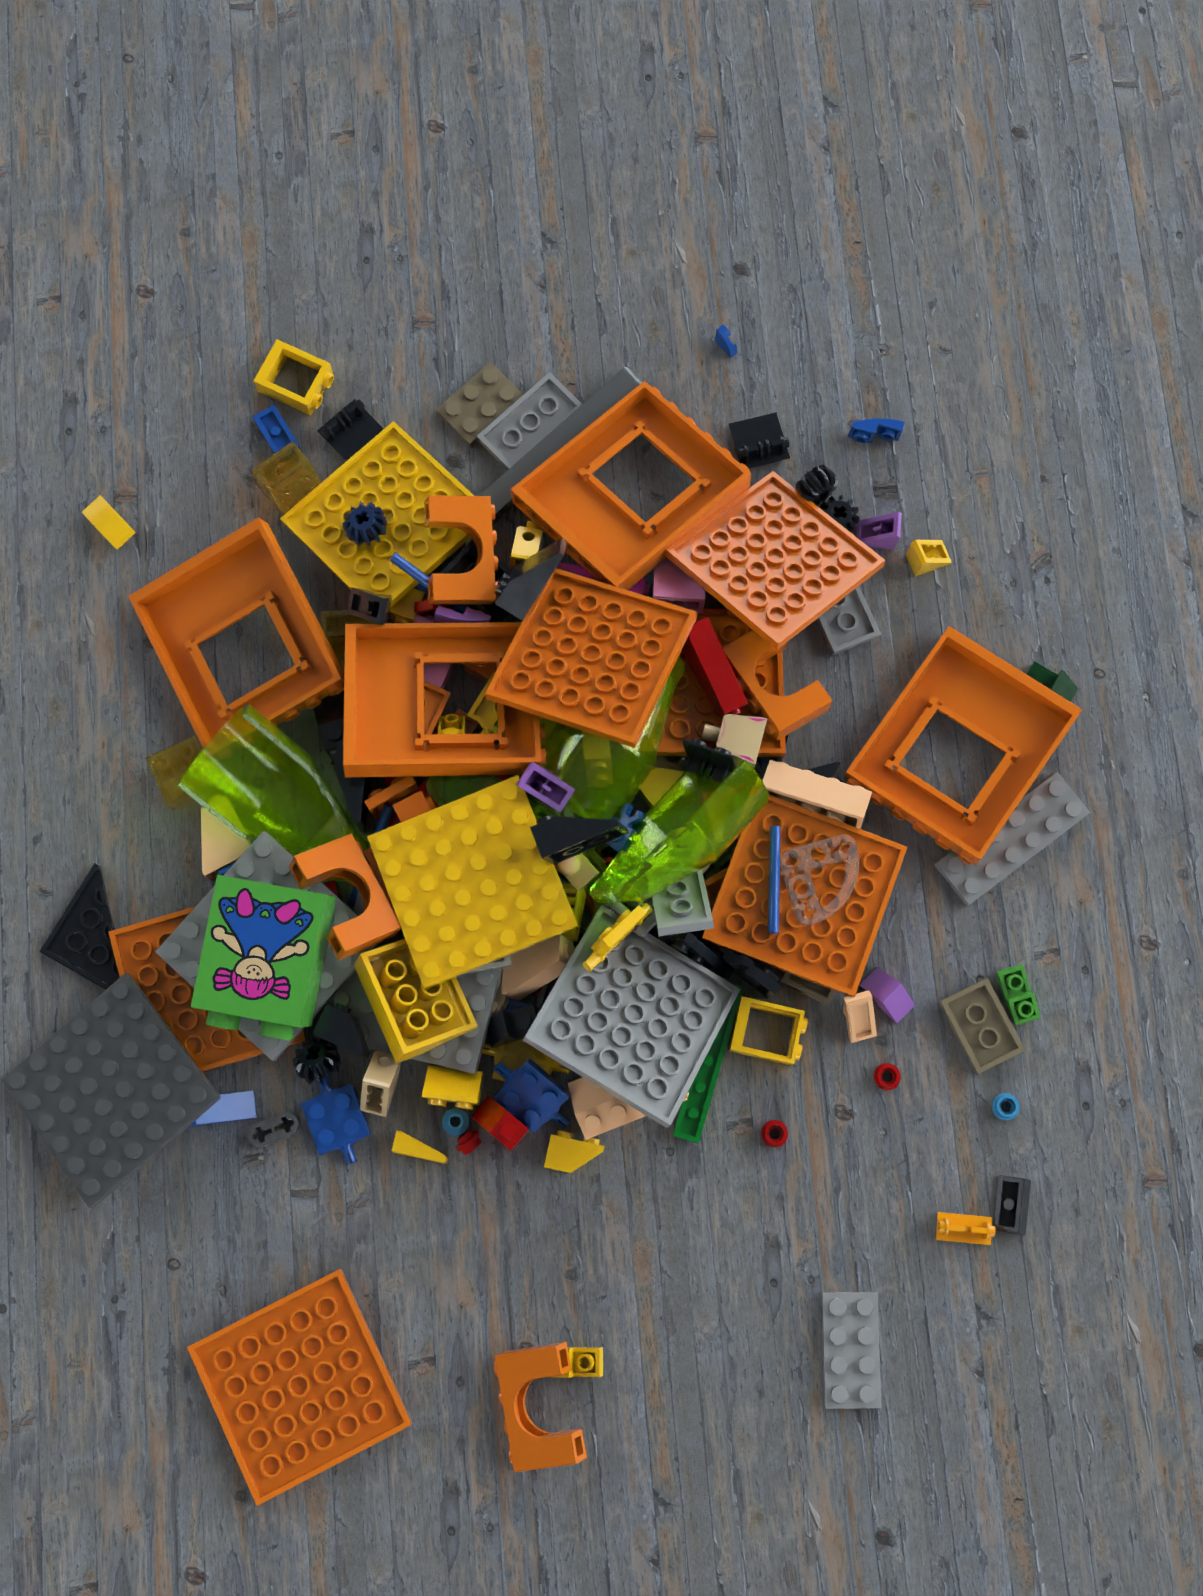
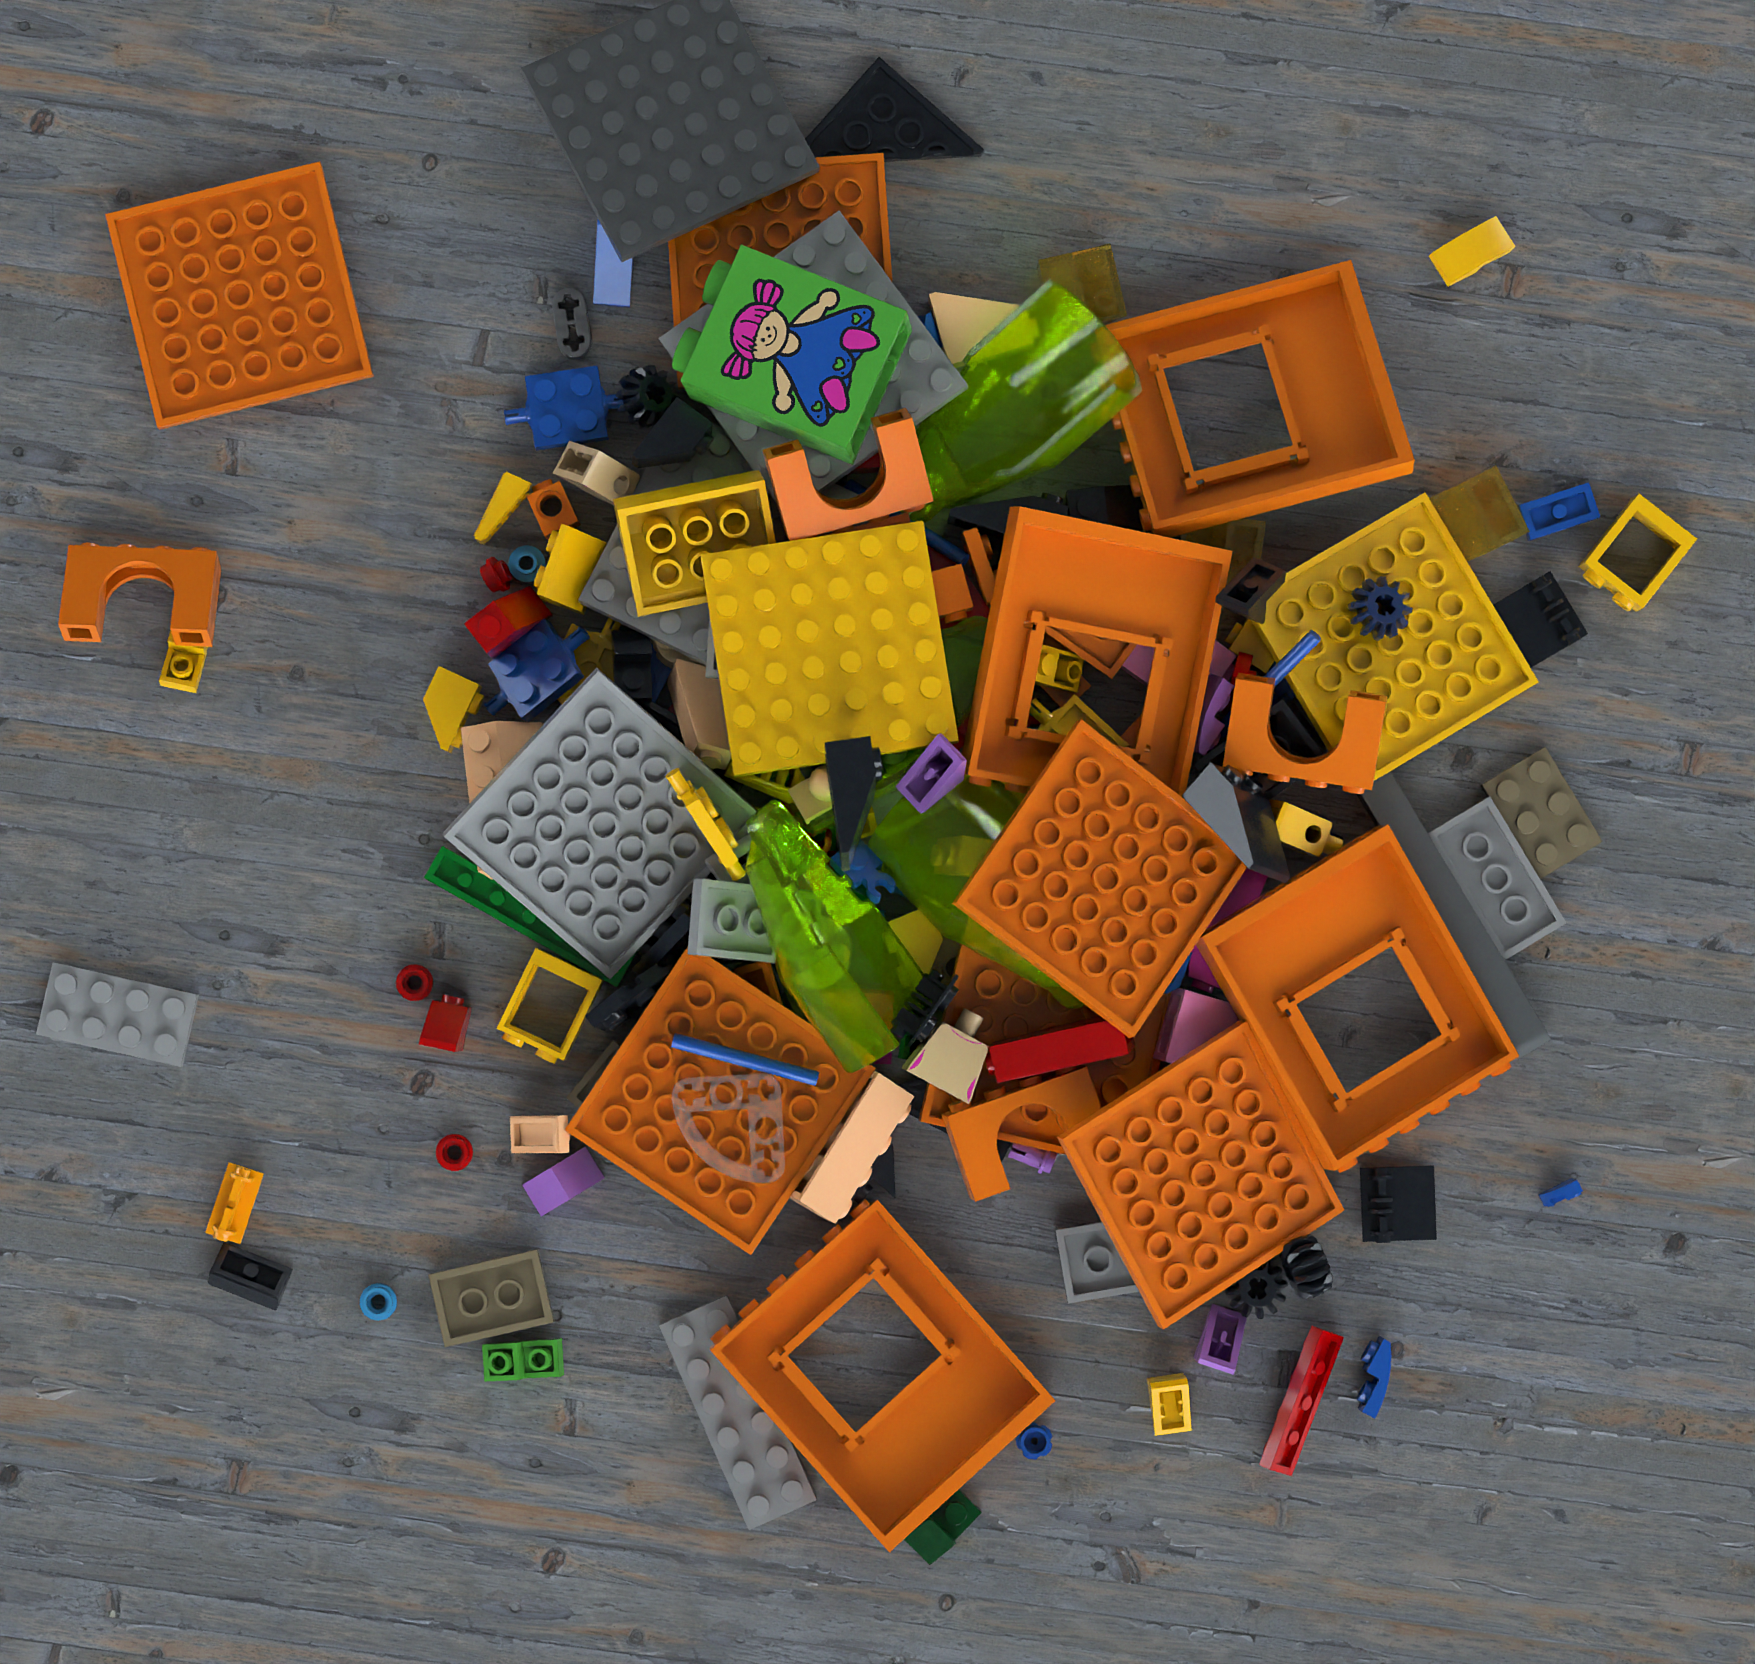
camera: 105 degrees right, 10 degrees up
(422, 1105) = (545, 491): none -> orange brick
(789, 673) = (1034, 1157): none -> medium lavender pin
(800, 1101) = (446, 1024): none -> red slope
(907, 473) = (1301, 1400): none -> red plate
(981, 632) = (1030, 1450): none -> blue plate

